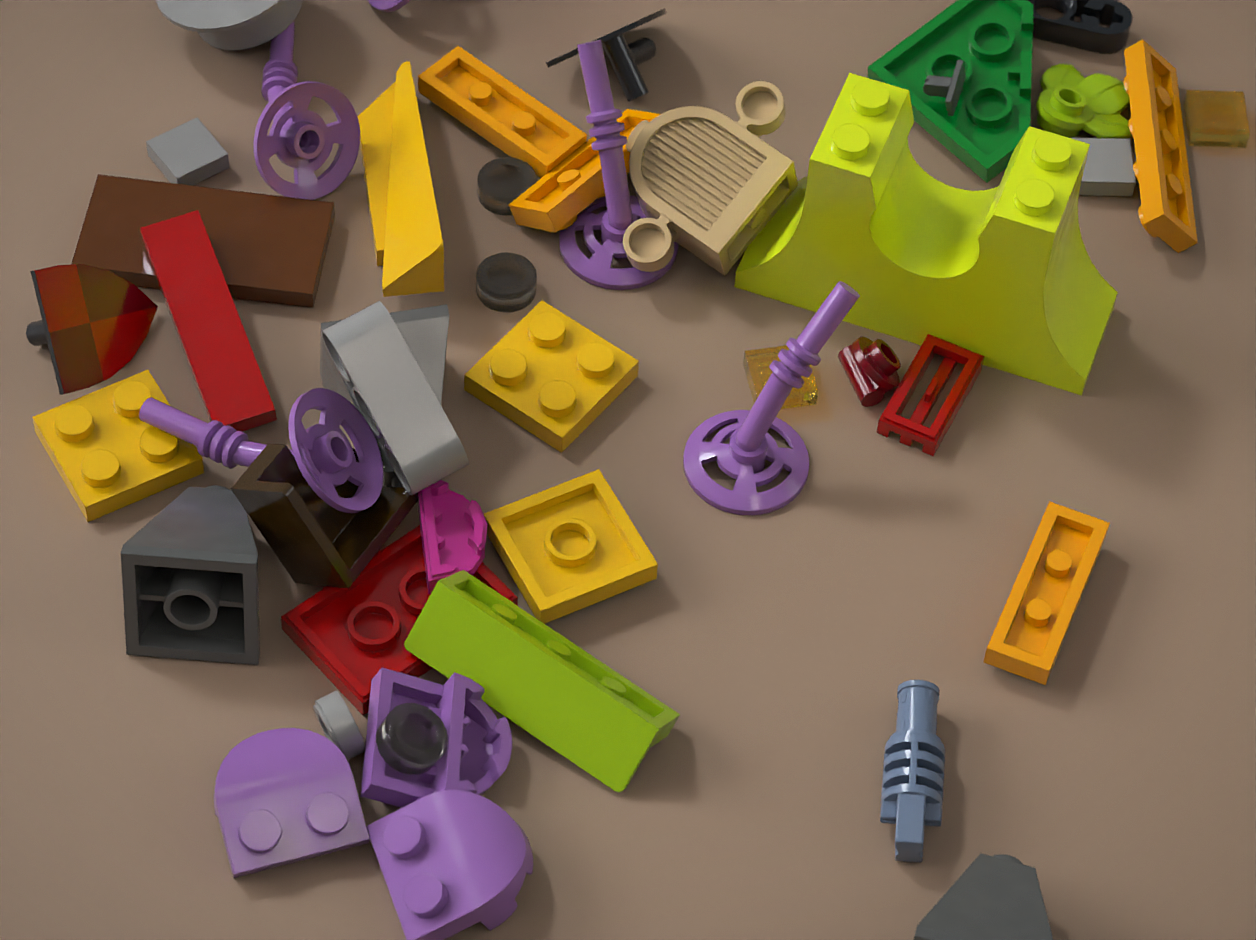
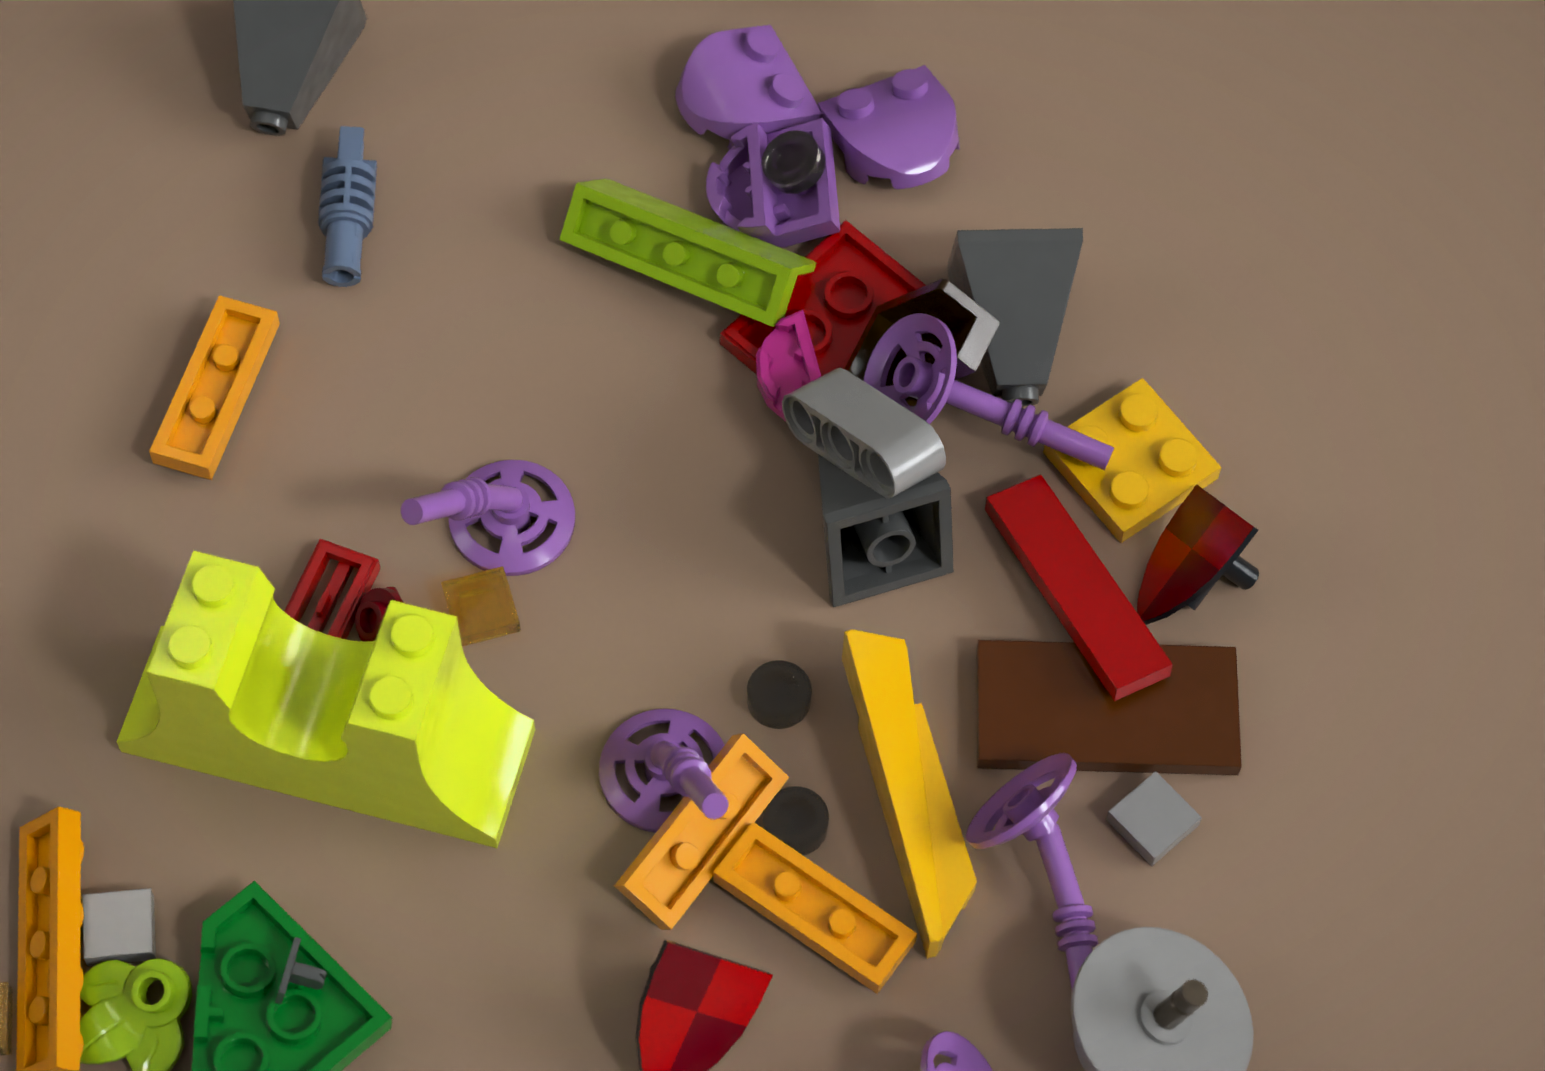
camera: 175 degrees right, 10 degrees up
(339, 724) = (861, 190): light grey tile -> none
(551, 376) = (717, 585): yellow plate -> none
(570, 546) = (676, 386): yellow plate -> none
(707, 180) = (573, 782): tan piece -> none

